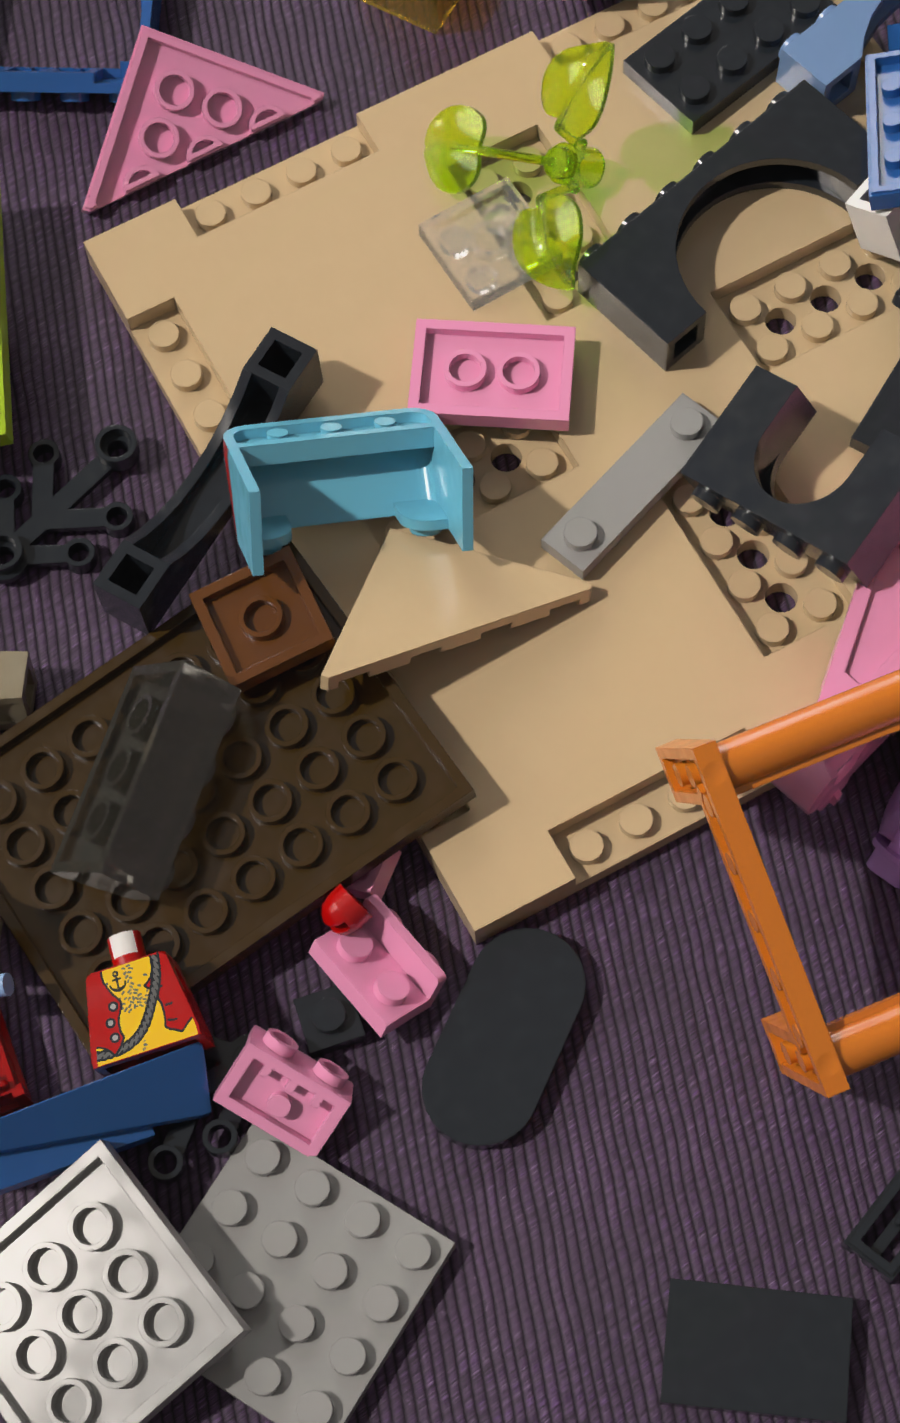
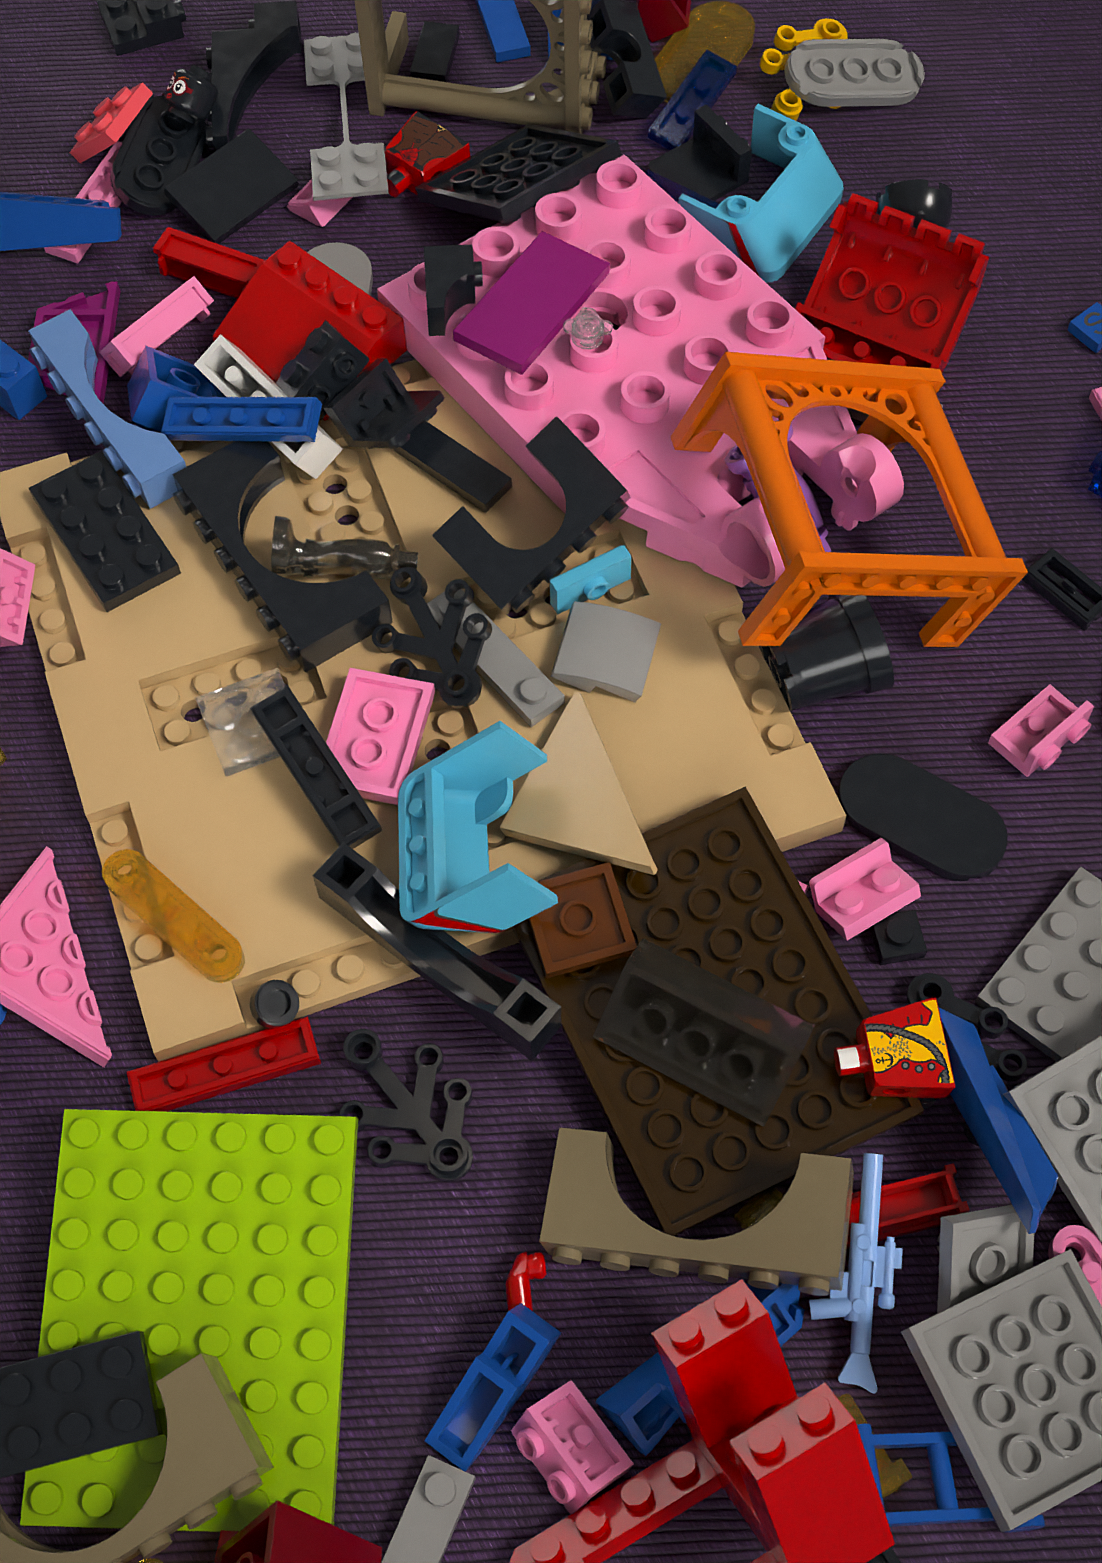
camera: 85 degrees left, 5 degrees down
(89, 322) = (224, 1067): none -> red tile
(151, 344) = (274, 1004): none -> black tile
(239, 222) = (173, 915): none -> clear yellow plate
(286, 1091) = (962, 964): bright pink bracket -> none
(344, 911) = (827, 899): red hinge -> none
(425, 313) = (315, 769): none -> black plate
(550, 235) = (169, 601): clear neon green plant -> none
(583, 448) = (437, 641): none -> black plant
(652, 1180) = (1040, 730): none -> bright pink bracket
(659, 611) = (606, 650): none -> light grey slope
(691, 890) = (832, 653): none -> black piece
(721, 221) = (334, 557): none -> clear smoke piece
(757, 575) = (590, 579): none -> medium azure plate

